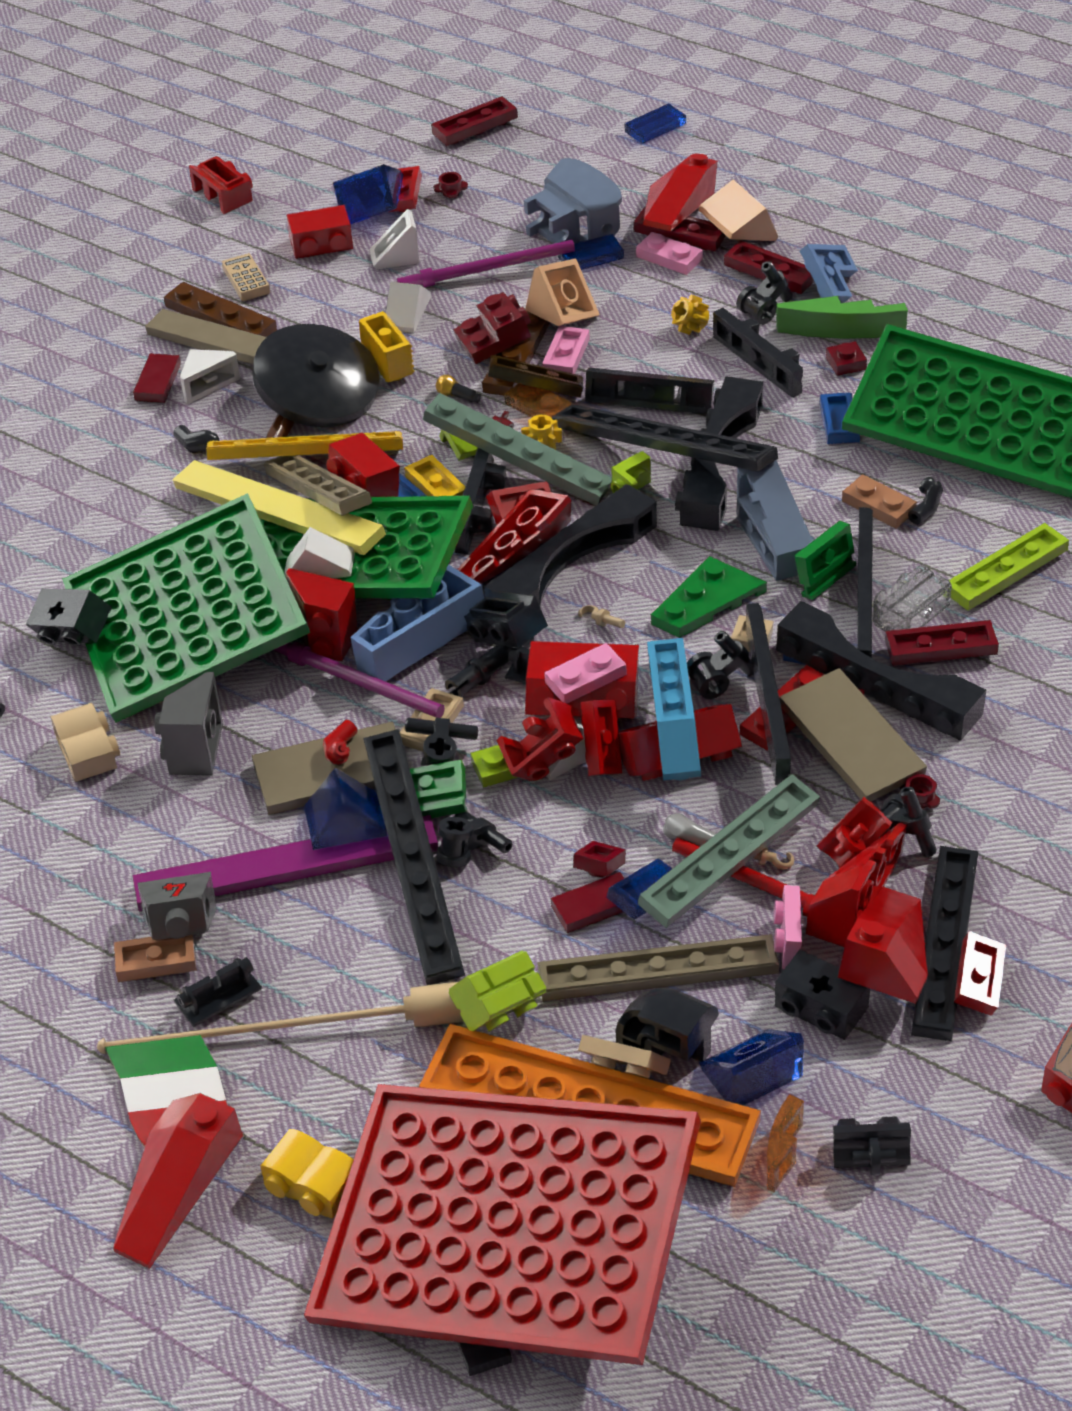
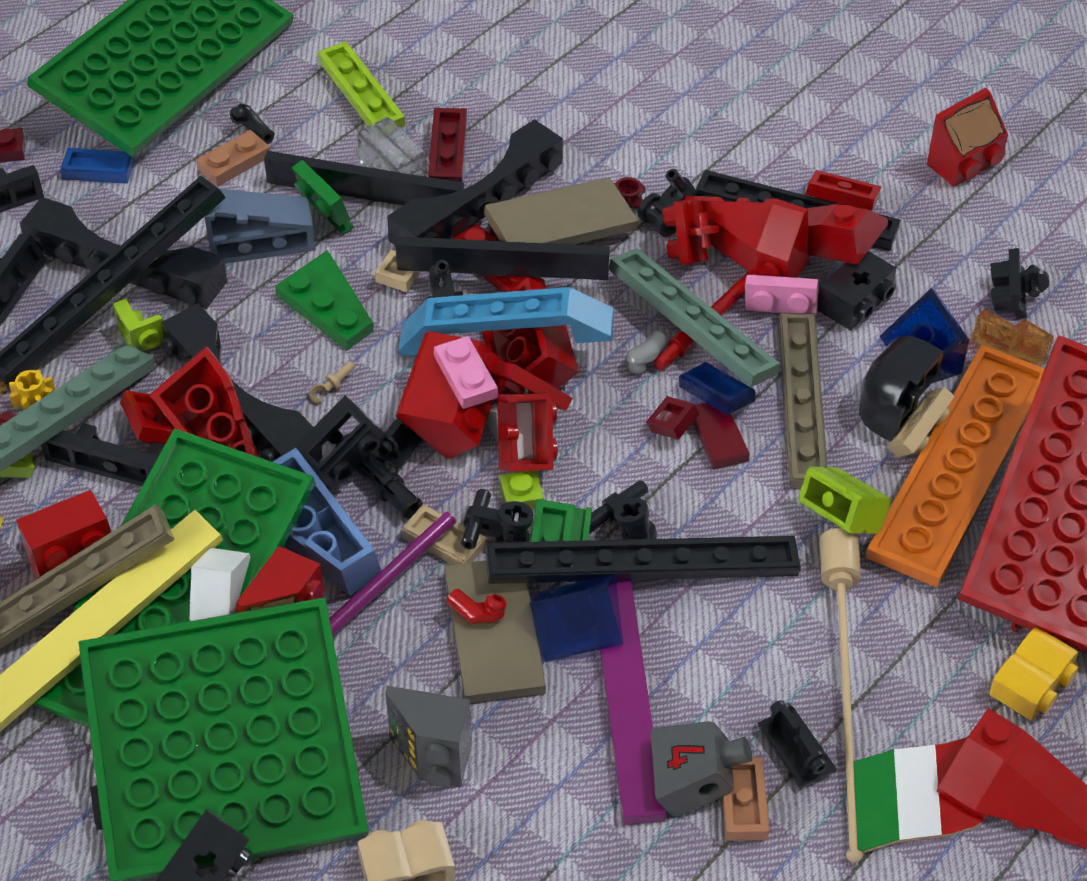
camera: 85 degrees left, 5 degrees up
(433, 478) = (72, 485): yellow plate -> none

